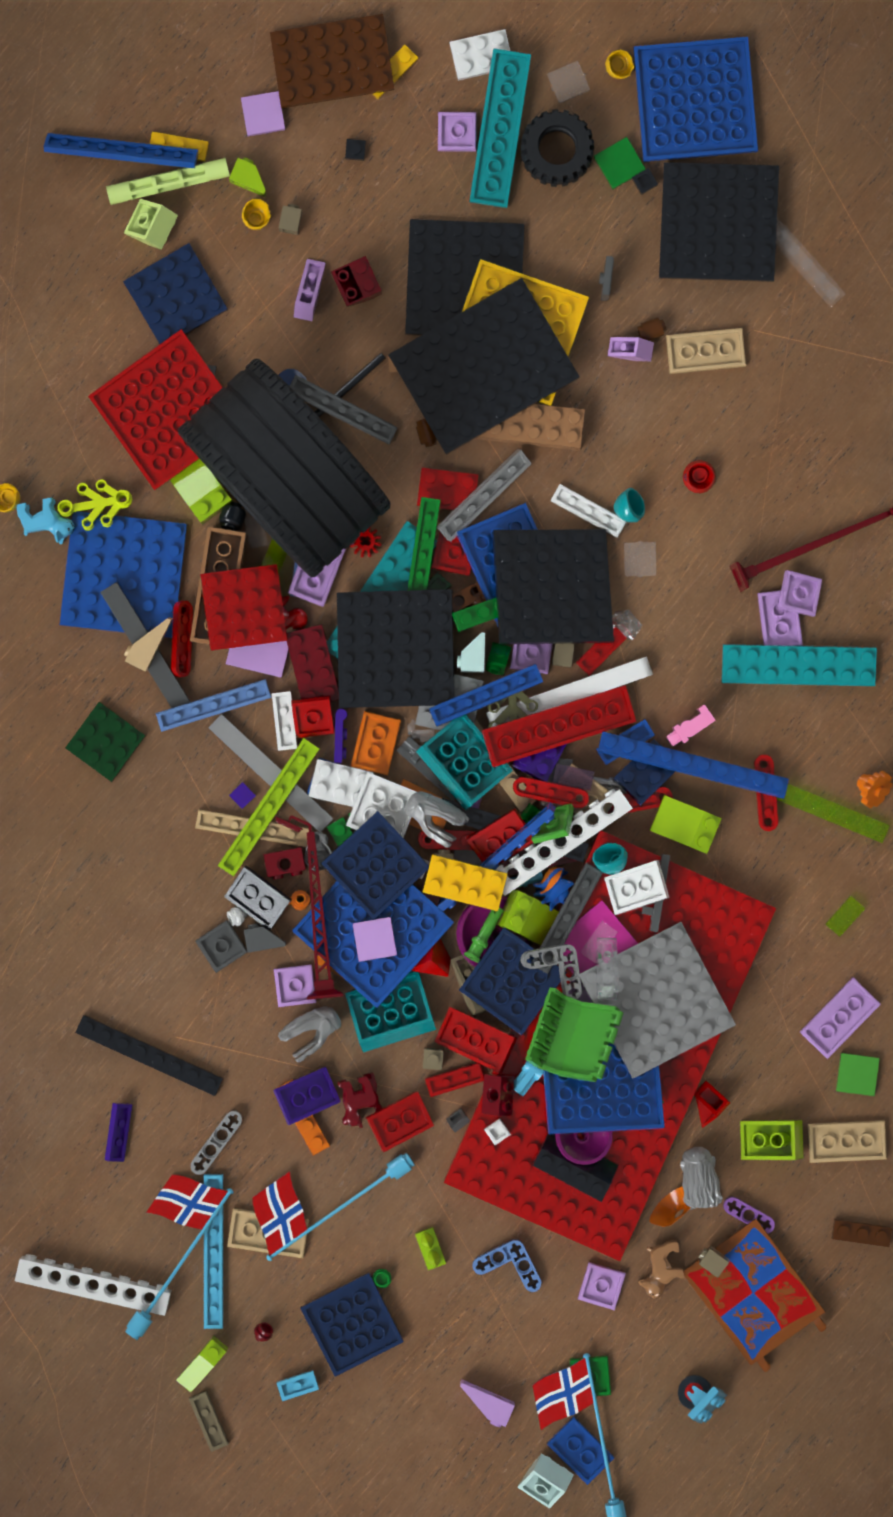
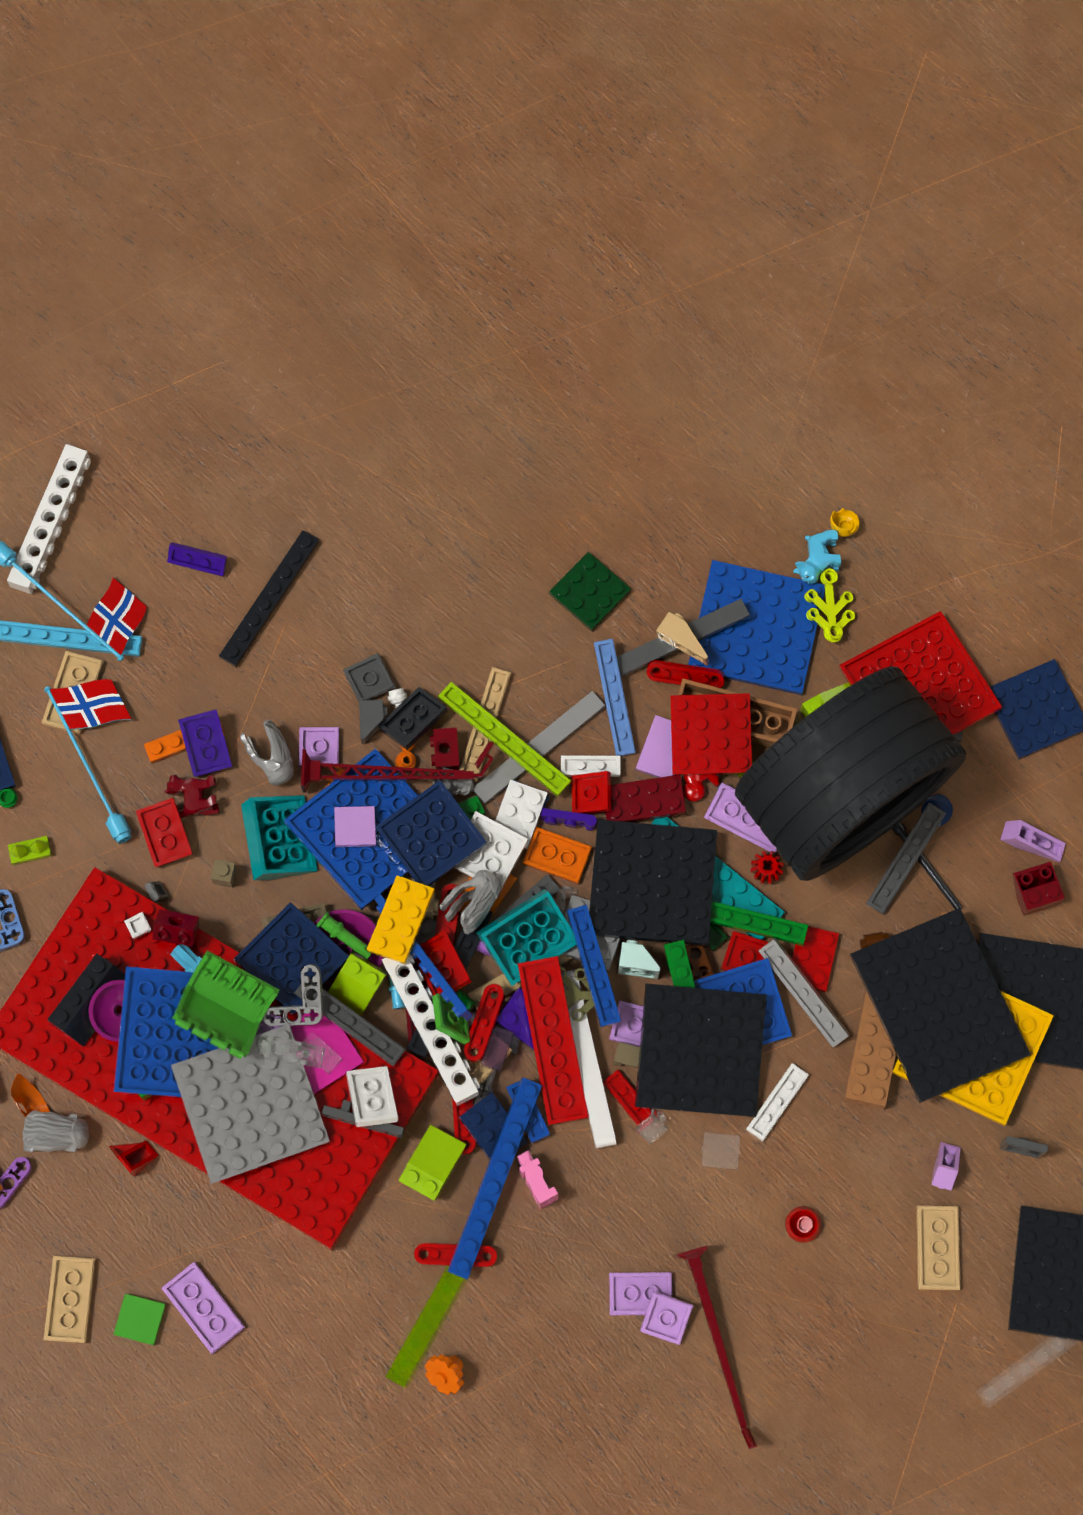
camera: 95 degrees right, 15 degrees down
(214, 1140) = (172, 652): light grey beam -> none
(242, 795) = (519, 717): dark purple tile -> none
(435, 961) = (324, 887): red slope -> none
(454, 1079) = (199, 893): red tile -> none
(475, 1040) = (236, 916): red plate -> none
(498, 659) = (630, 988): green bracket -> none
(553, 887) = (385, 1015): blue hair -> none
(610, 858) = (406, 1073): teal hat -> none
(629, 506) = (778, 1144): teal hat -> none
(652, 329) = (965, 1190): reddish brown brick -> none
(771, 1140) = (83, 1217): lime slope -> none
(799, 665) = (588, 1308): teal plate -> none
(845, 916) = (311, 1326): clear neon green tile -> none

